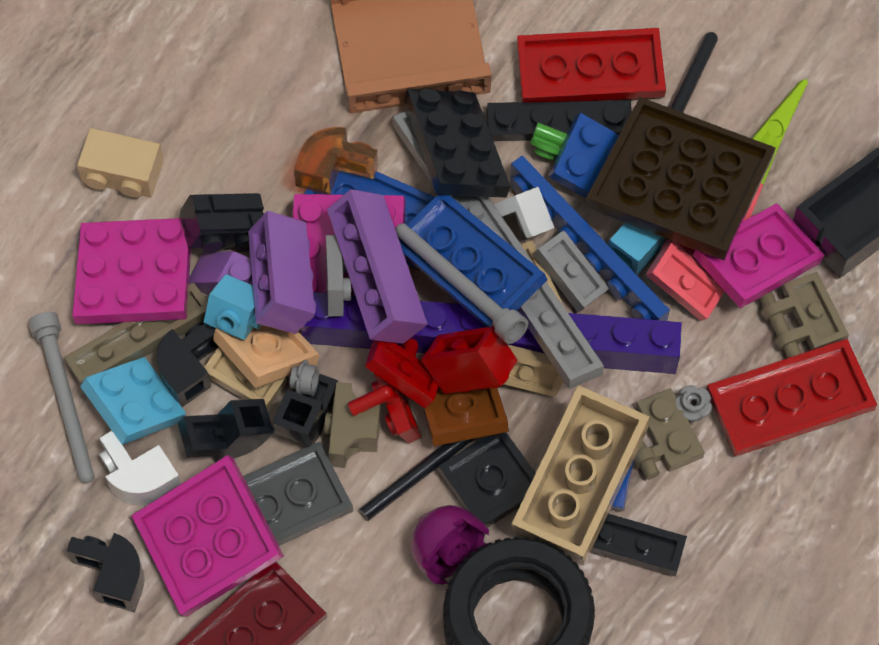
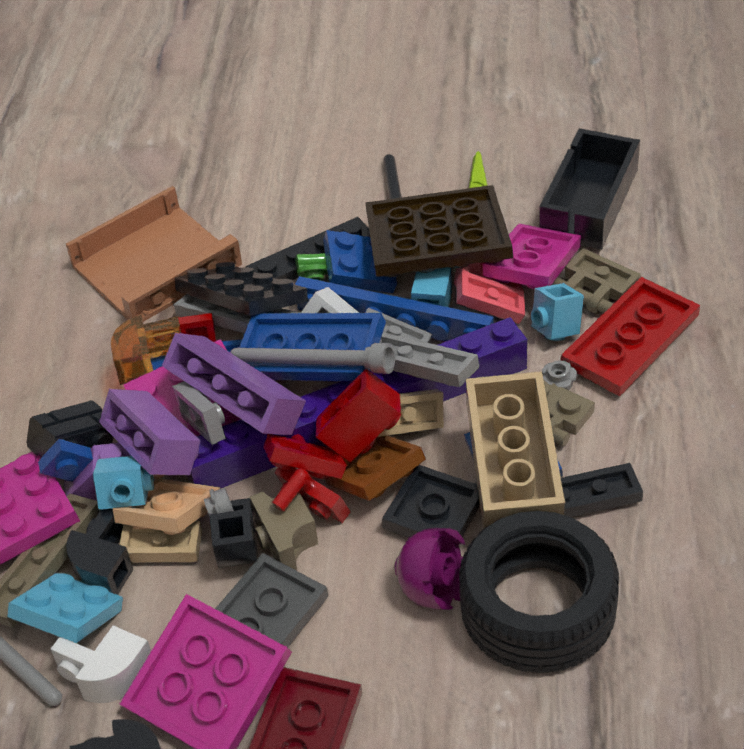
camera: 25 degrees left, 20 degrees down
(200, 254) = (65, 460): none -> blue plate
(232, 432) = (179, 572): black brick -> none
(397, 162) = (198, 325): none -> red plate
(411, 478) = (364, 542): black bar -> none
(591, 65) = (309, 209): red plate -> none
(735, 335) = (557, 311): none -> medium azure brick

